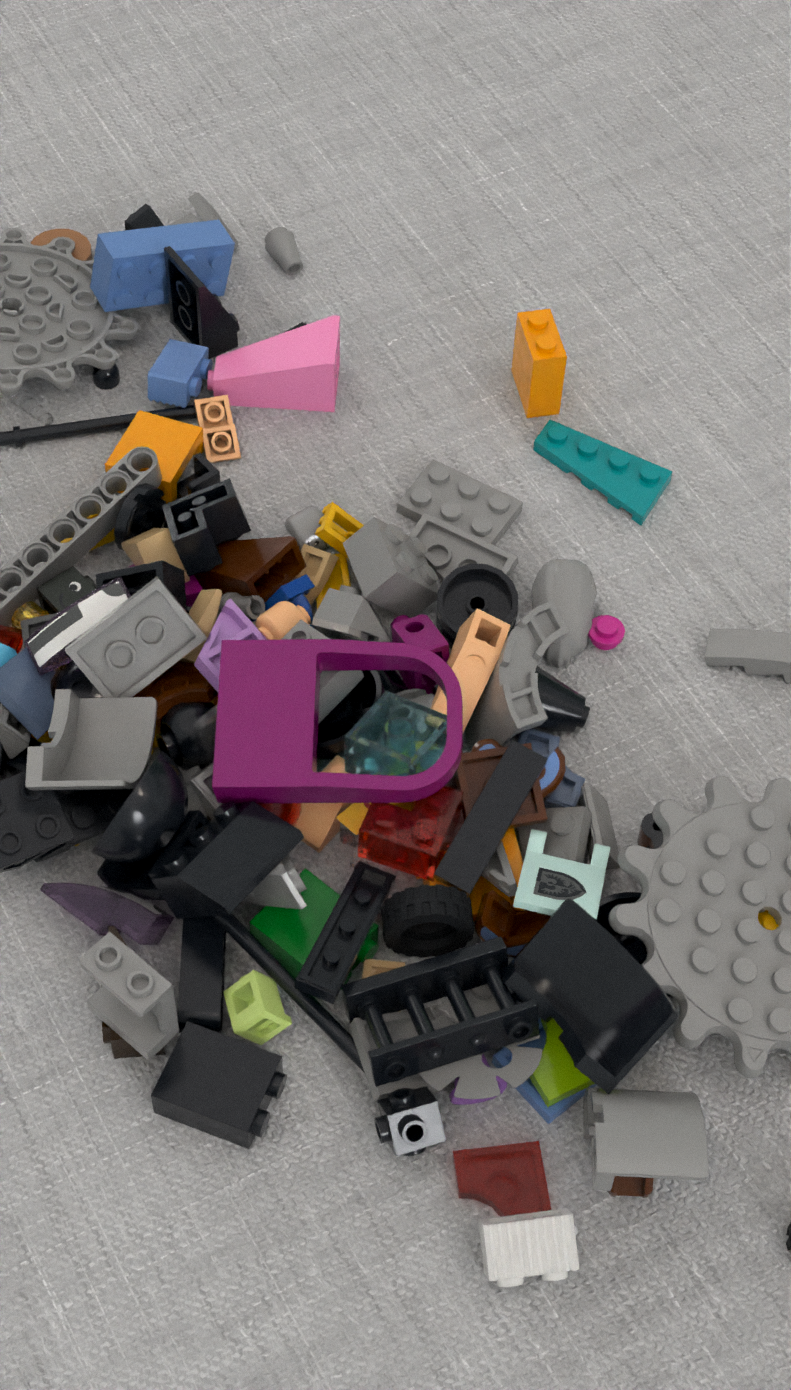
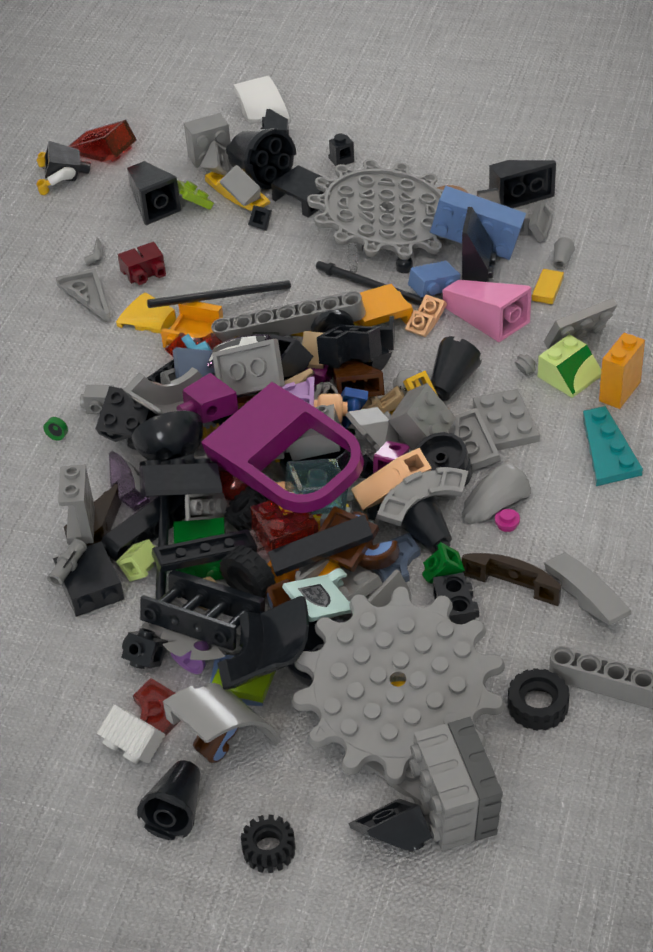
camera: 50 degrees right, 10 degrees down
(132, 721) = (209, 399): none -> magenta torso
(140, 178) = (523, 181): none -> black slope
(188, 1086) = (59, 573): none -> light grey pin
(310, 300) = (547, 286): none -> yellow tile
(339, 473) = (453, 366): none -> black cone
(342, 840) = (239, 511): none -> black tyre
(408, 421) = (525, 364): none -> light grey plate
(426, 324) = (581, 322): none -> light grey plate
(460, 394) = (568, 366): none -> yellowish green slope
(629, 735) = (442, 562): none -> green brick
(675, 777) = (460, 594): none -> black brick
(681, 1281) = (172, 802): none -> black cone
(738, 684) = (482, 565): none -> dark brown slope

